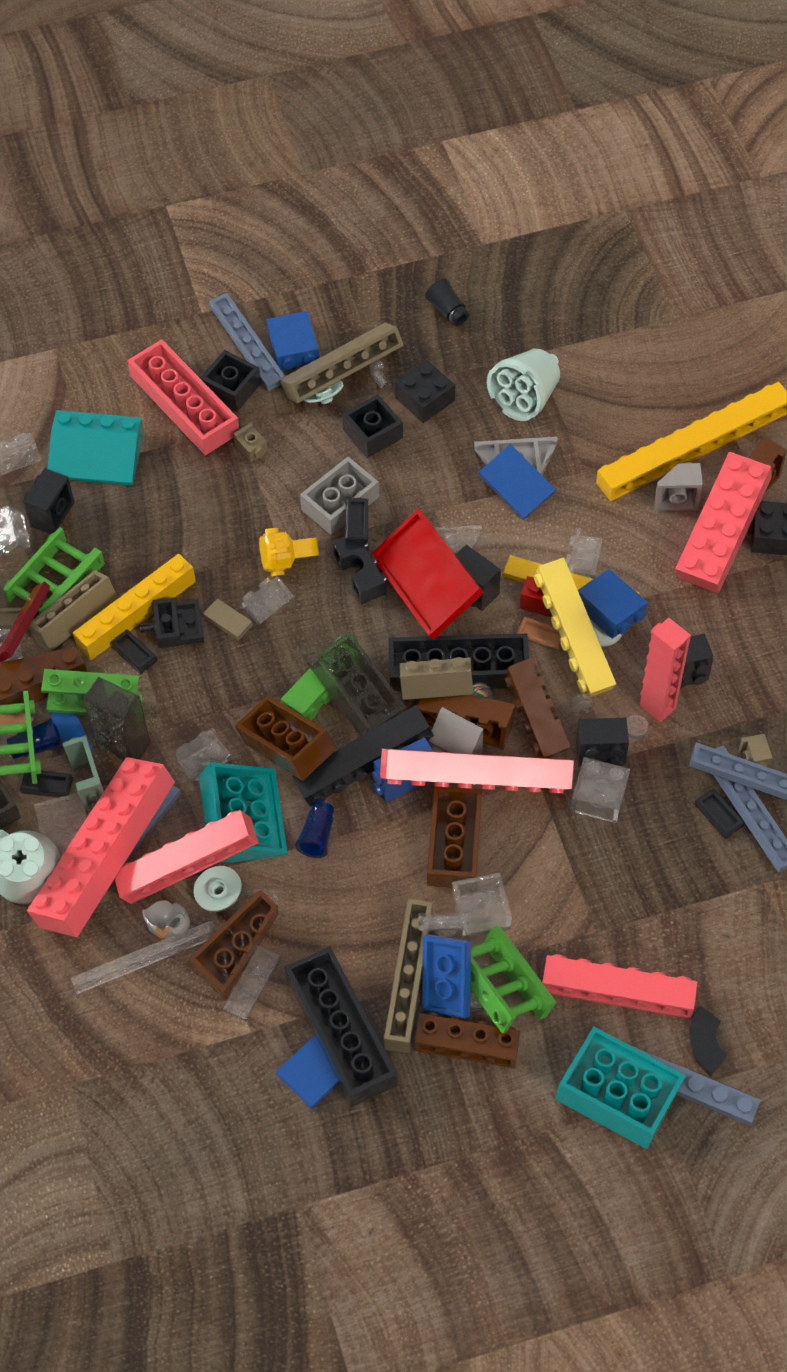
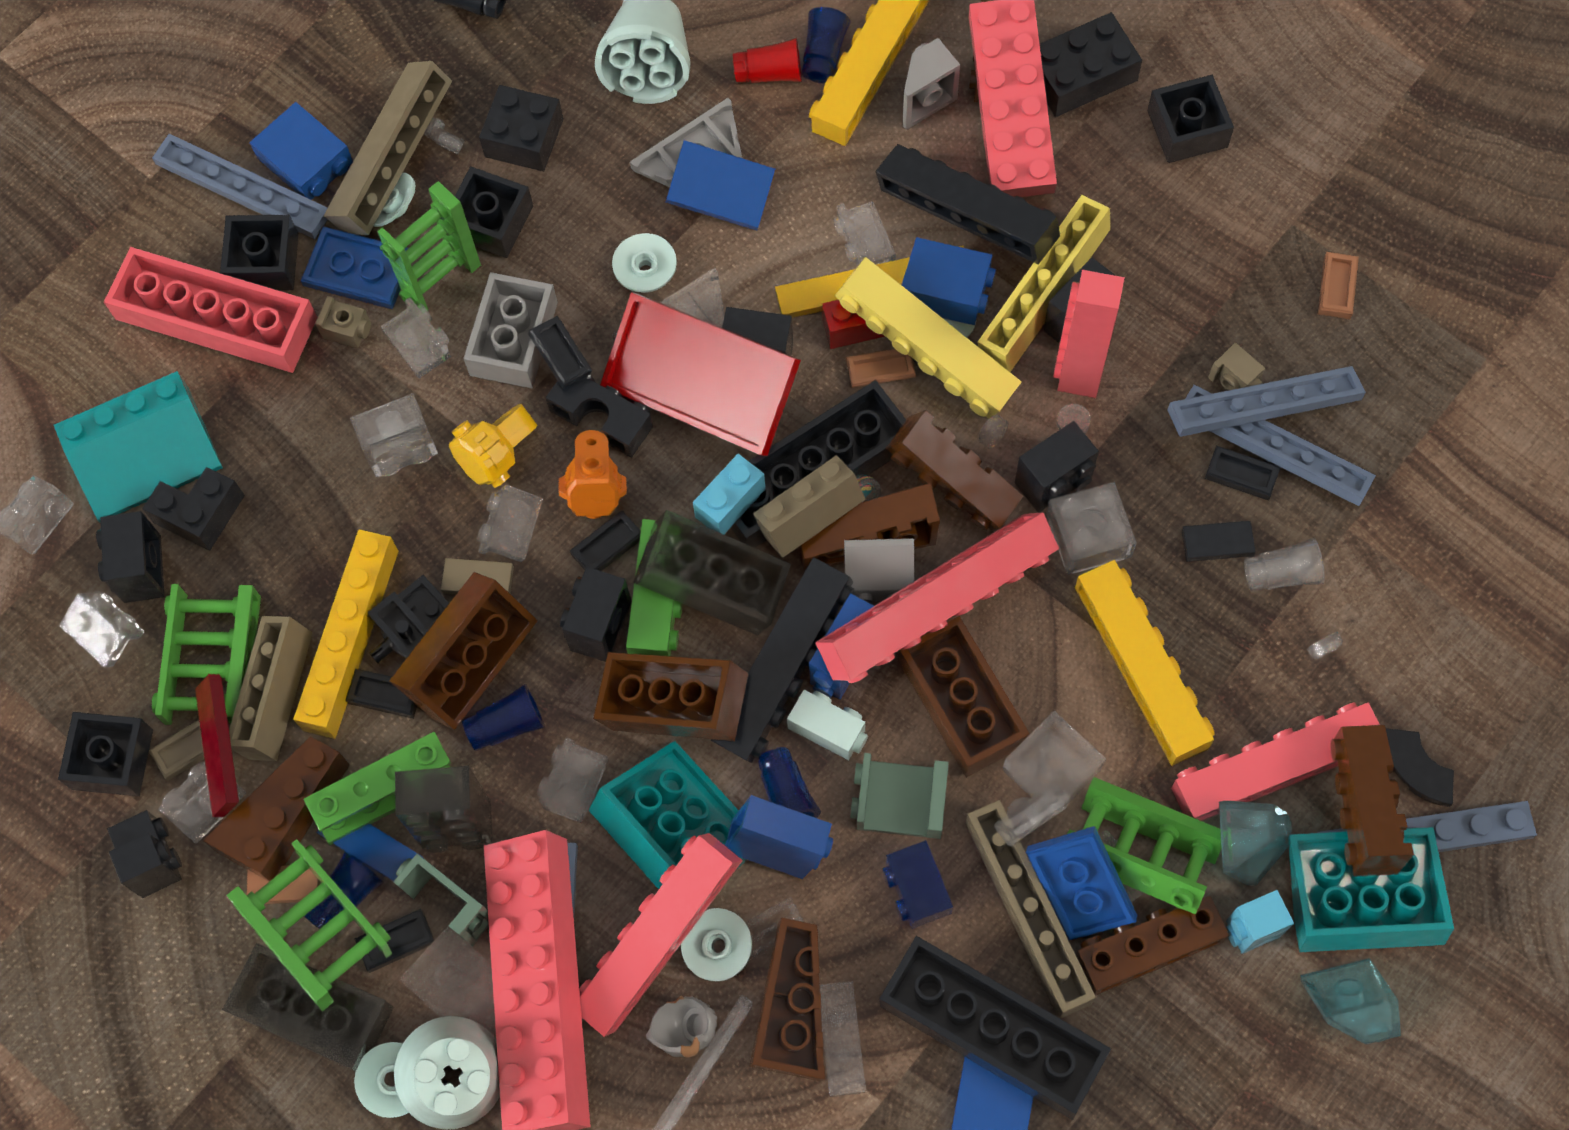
camera: 30 degrees left, 10 degrees up
(102, 500) = (200, 514): none -> black brick
(187, 701) = (504, 719): none -> clear blue plant
(190, 649) = (464, 650): none -> reddish brown brick
(234, 516) = (394, 436): none -> clear brick
(276, 670) = (596, 613): none -> black brick
(280, 419) = (351, 268): none -> blue tile
(284, 473) = (417, 339): none -> clear bracket
(290, 848) = (779, 837): none -> blue brick
(311, 641) = (607, 542): none -> black tile
(326, 599) = (592, 478): none -> orange piece
(340, 427) = (456, 242): none -> bright green fence
(354, 924) = (917, 884): none -> clear blue brick
(366, 809) = (827, 724): none -> light aqua brick
(379, 873) = (900, 798): none -> sand green panel
(394, 646) = (729, 495): none -> medium azure brick
(441, 494) = (641, 251): none -> light aqua dish
(537, 1062) = (1258, 922): none -> medium azure brick
(566, 1146) = (1355, 1001): none -> clear light blue slope
(567, 1014) = (1252, 838): none -> clear light blue slope
(578, 883) = (1144, 662): none -> yellow brick
(595, 430) = (769, 63): none -> red plant
(631, 652) = (1028, 304): none -> light yellow brick
(636, 435) = (823, 42): none -> clear blue plant
(651, 1031) = (1369, 801): none -> reddish brown wedge
(656, 567) = (968, 203): none -> black brick
(675, 843) = (1218, 541): none -> black tile
(697, 938) = (1325, 646): none -> clear tile
(704, 879) = (1286, 567): none -> clear plant

